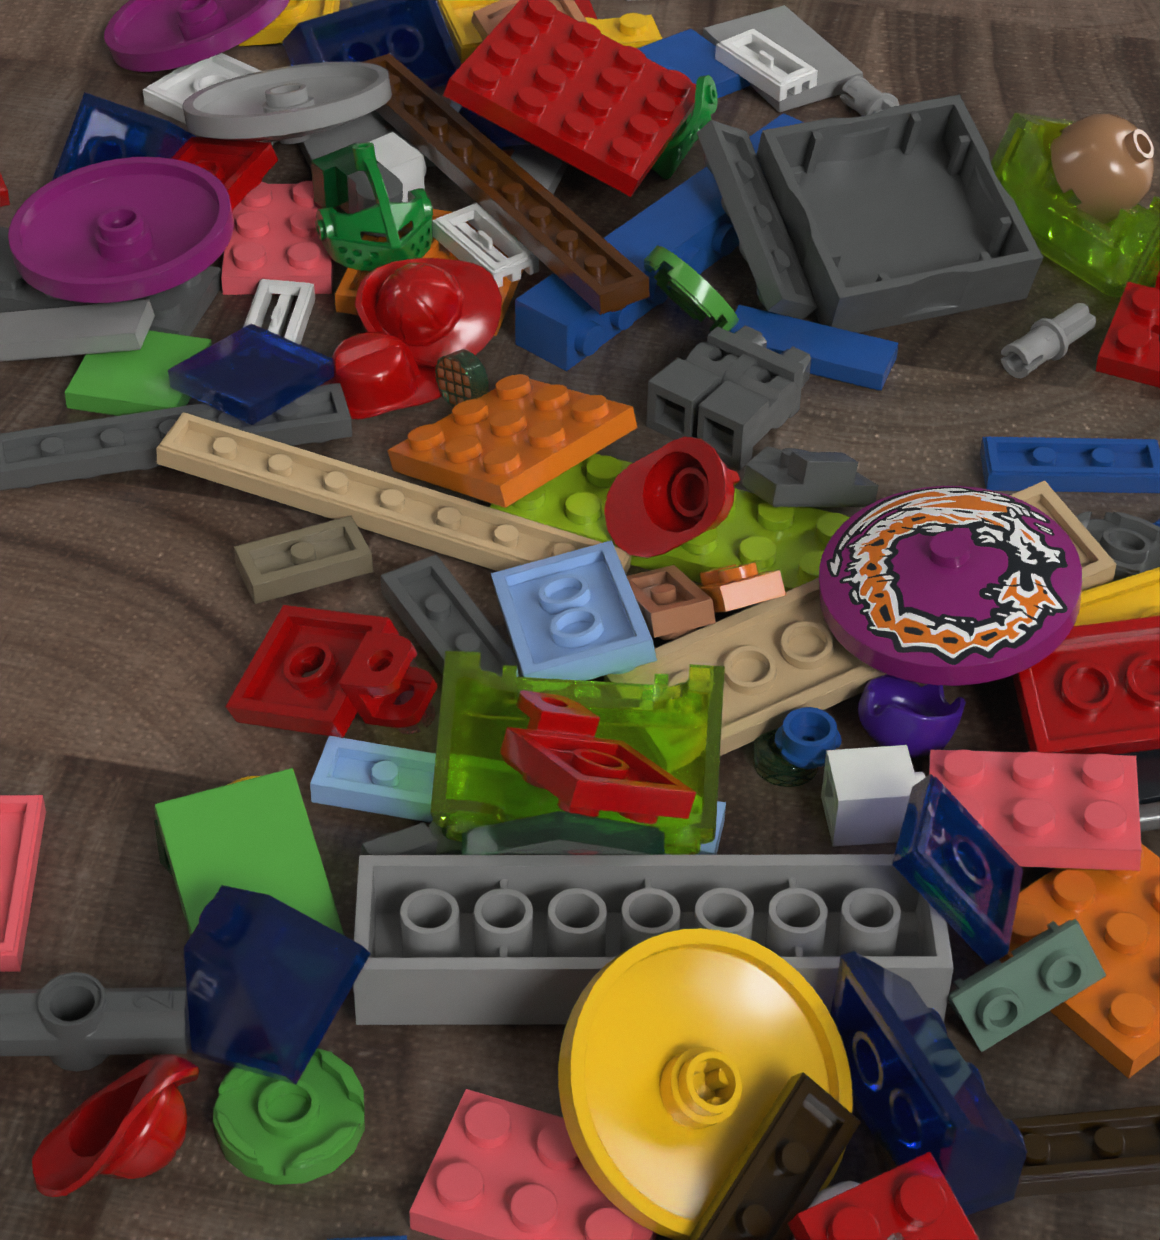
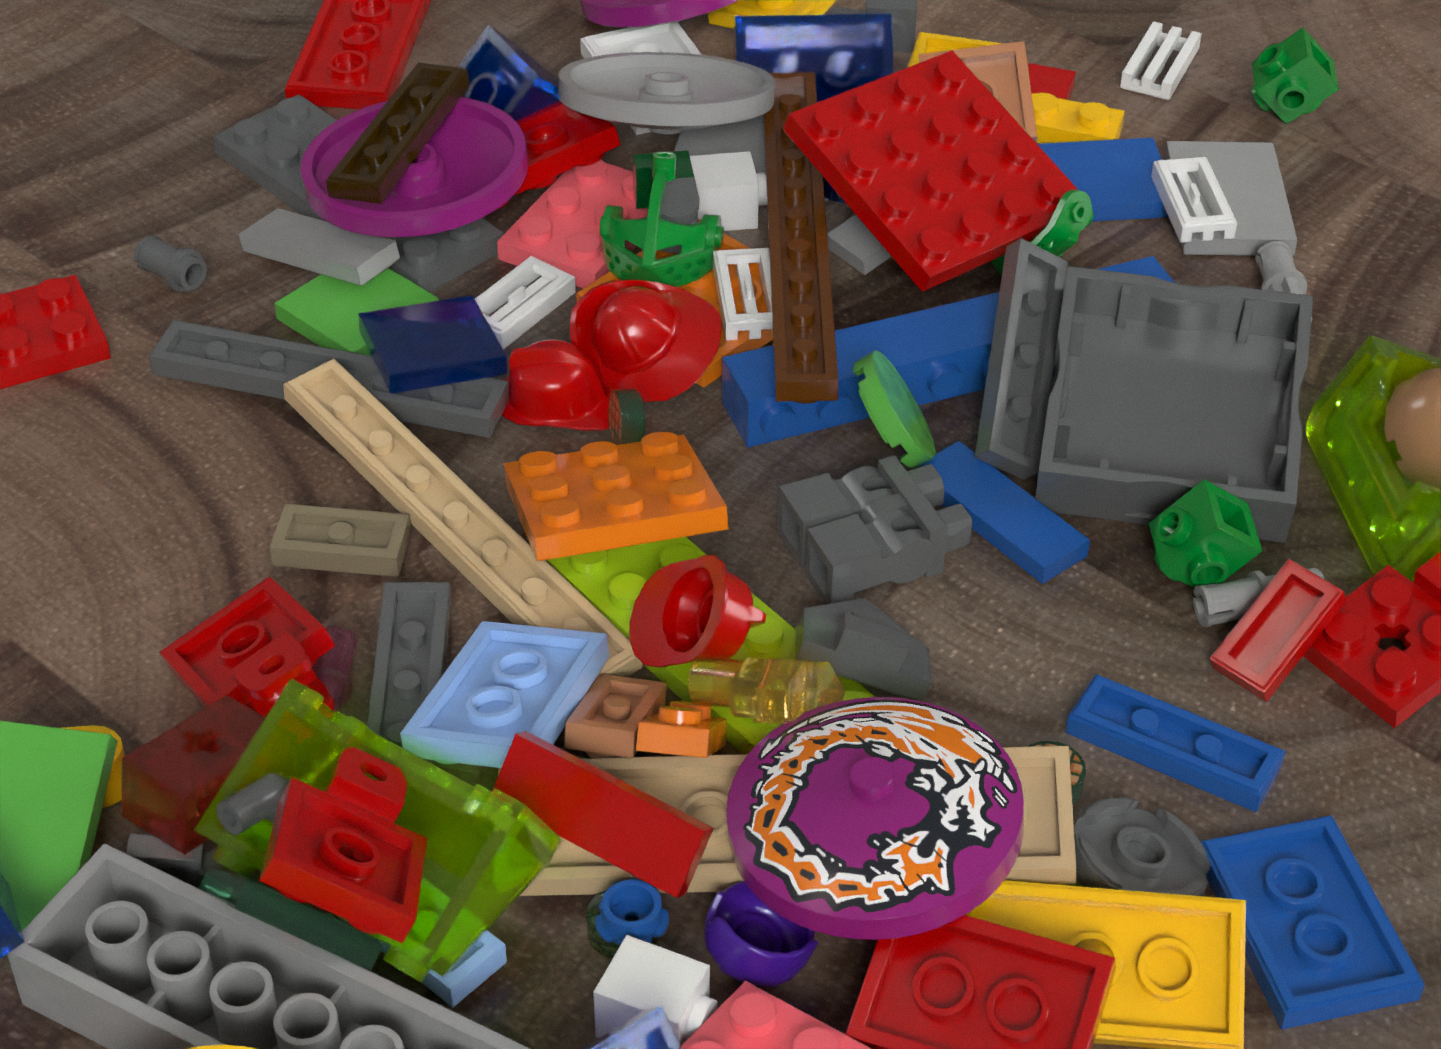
camera: 30 degrees right, 0 degrees up
(93, 204) = (398, 133): none -> dark brown tile
(386, 770) = (182, 770): none -> clear red brick
(476, 769) = (252, 803): none -> dark grey arm
(756, 665) = (604, 814): none -> red tile
(779, 529) = (764, 687): none -> clear yellow piece
(988, 308) = (1204, 536): none -> green brick
(1088, 356) = (1277, 630): none -> tile

